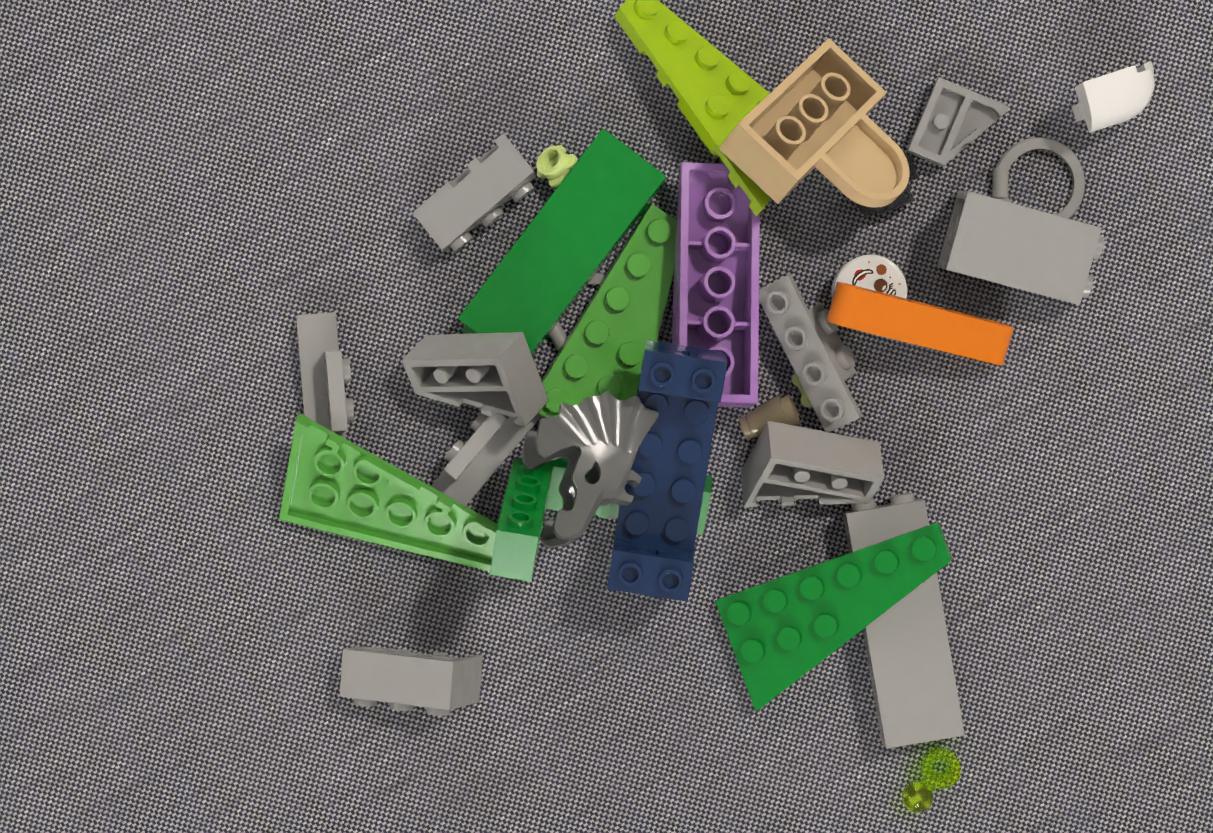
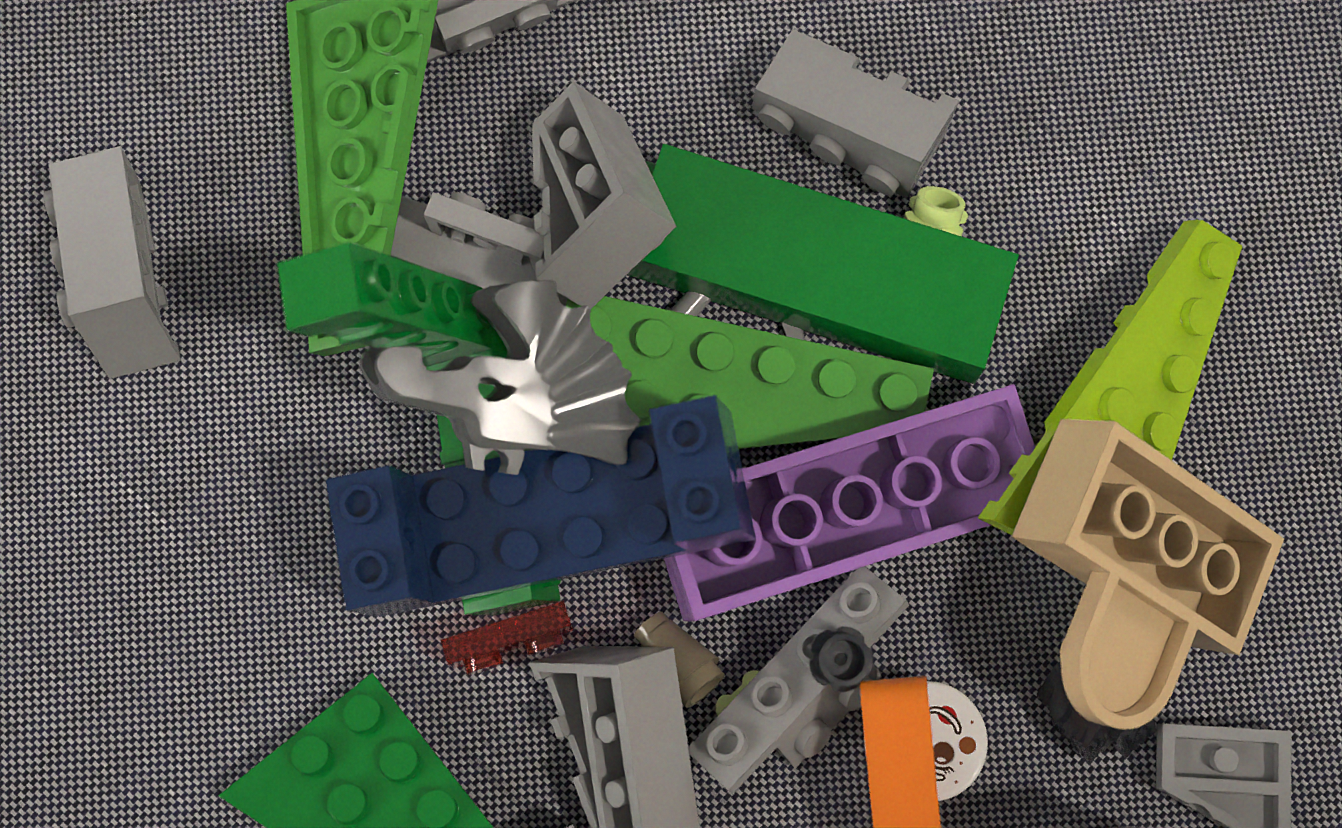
camera: 70 degrees right, 10 degrees down
(724, 531) = (482, 647): none -> clear red plate
(819, 322) = (858, 659): none -> black plate

